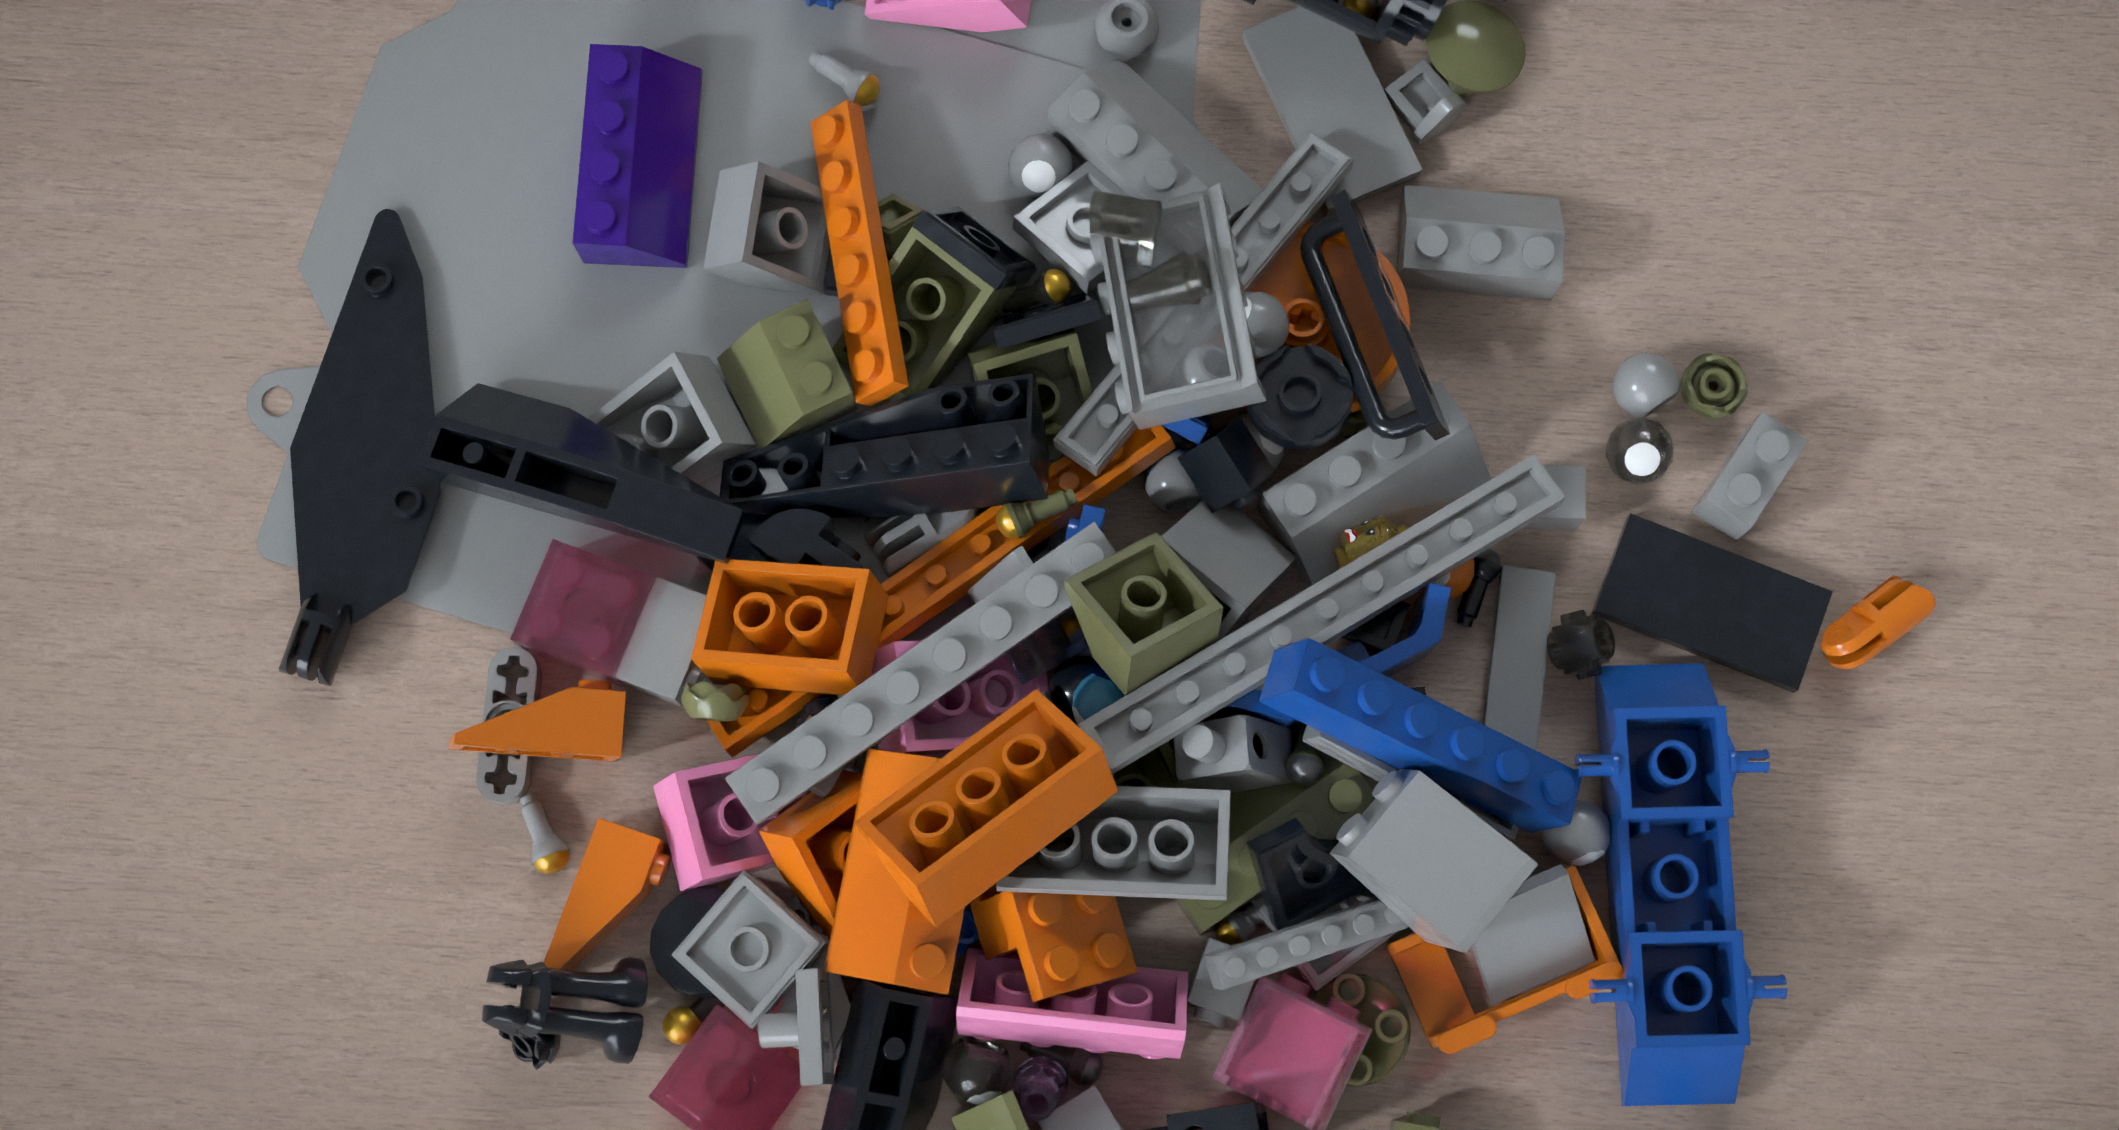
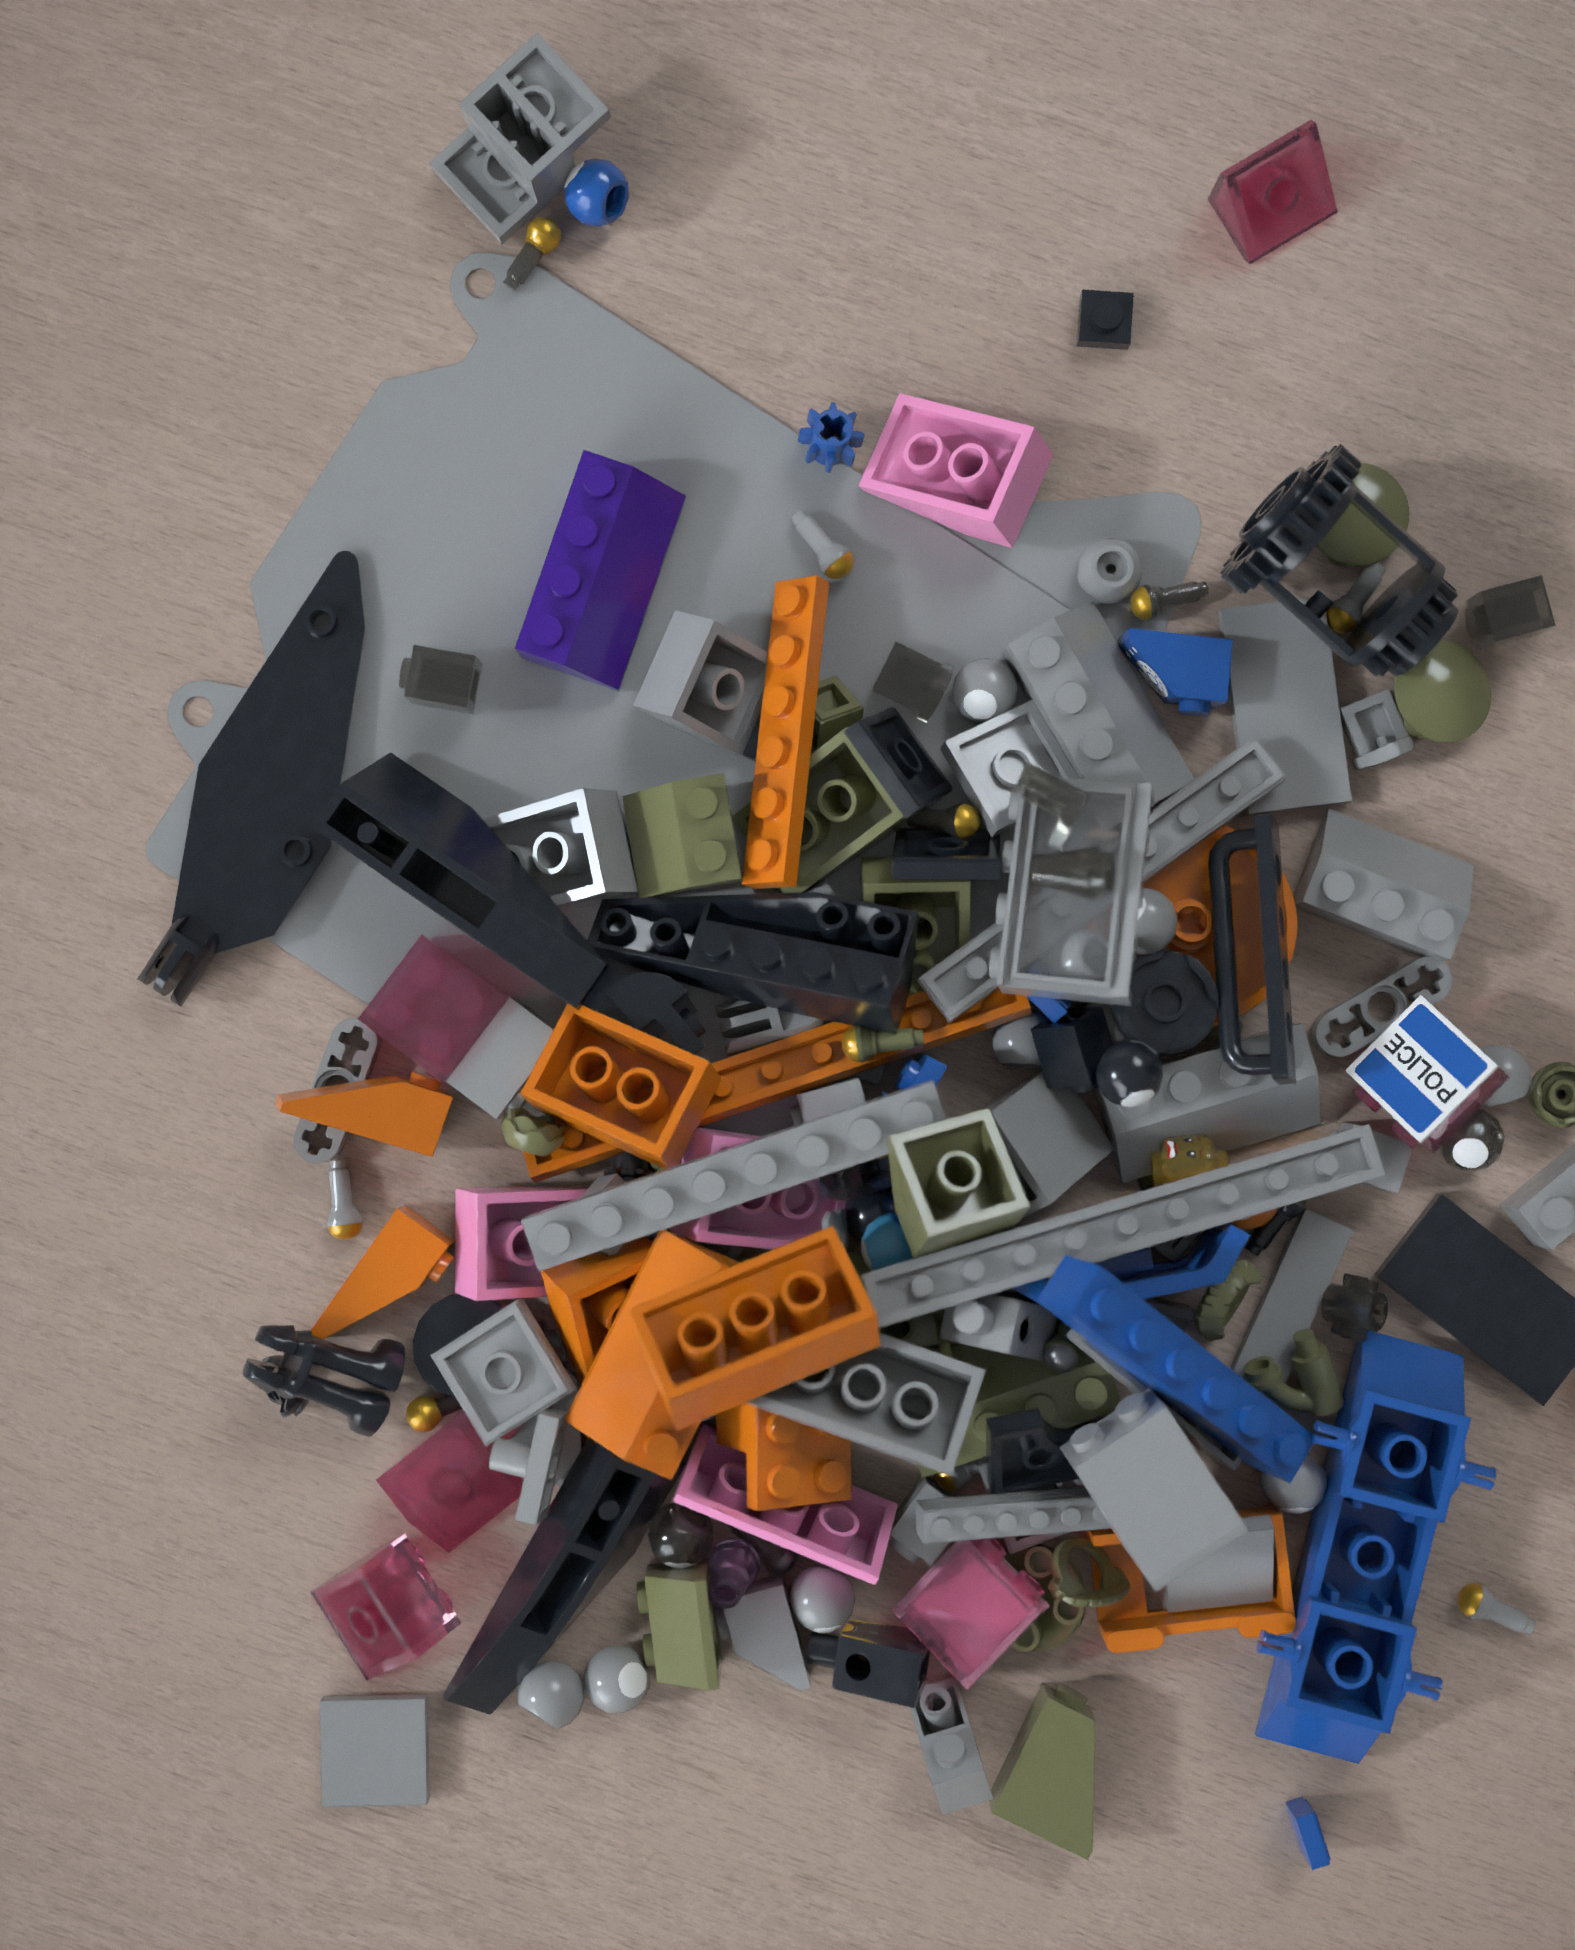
camera: 20 degrees right, 10 degrees up
(509, 299) = (441, 679): none -> clear smoke brick
(969, 177) = (914, 680): none -> clear smoke tile
(1139, 1092) = (821, 1599): none -> light grey piece
(1174, 42) = (1151, 601): none -> clear smoke piece
(1219, 91) = (1181, 667): none -> blue slope
(1285, 467) = (1129, 1073): none -> black piece
(1388, 1004) = (1112, 1583): none -> olive piece
(1451, 655) = (1223, 1299): none -> olive piece
(1527, 318) = (1341, 1015): none -> light grey beam
(1561, 719) = (1315, 1373): none -> olive plant
(1575, 397) = (1425, 1076): none -> piece
(1801, 905) = (1478, 1603): none -> light grey piece

